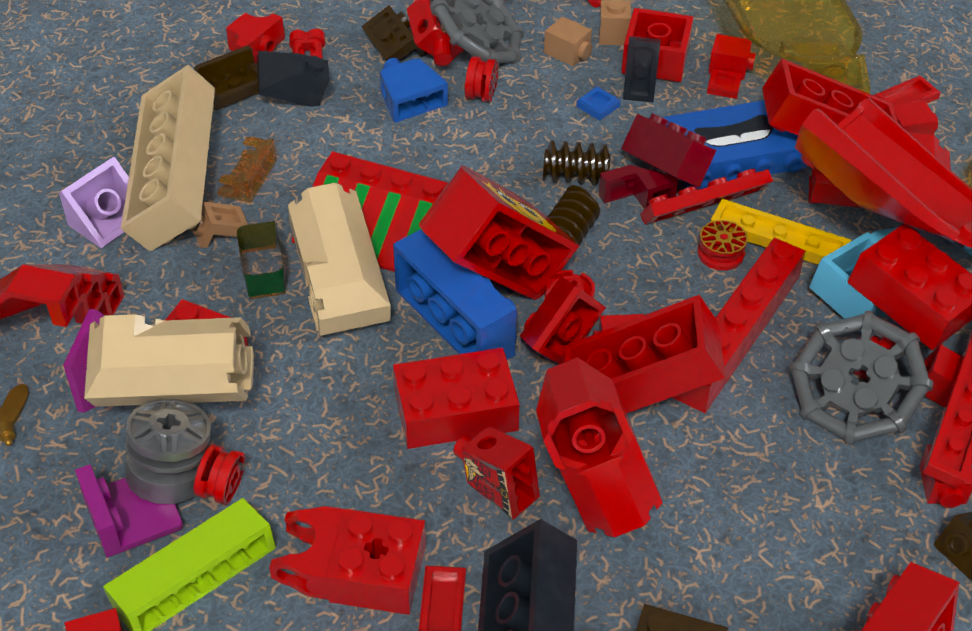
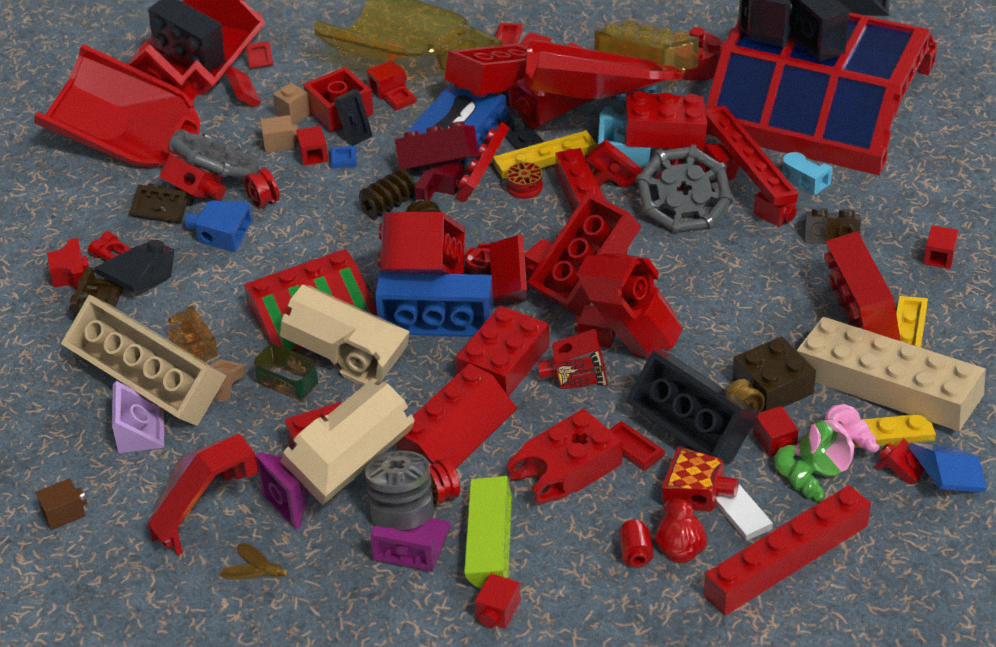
camera: 45 degrees left, 5 degrees down
(320, 429) = (459, 417): none -> red slope
(580, 72) = (312, 145): none -> red brick
(788, 194) = (519, 133): none -> black hinge
(817, 292) = (612, 165): none -> red hinge

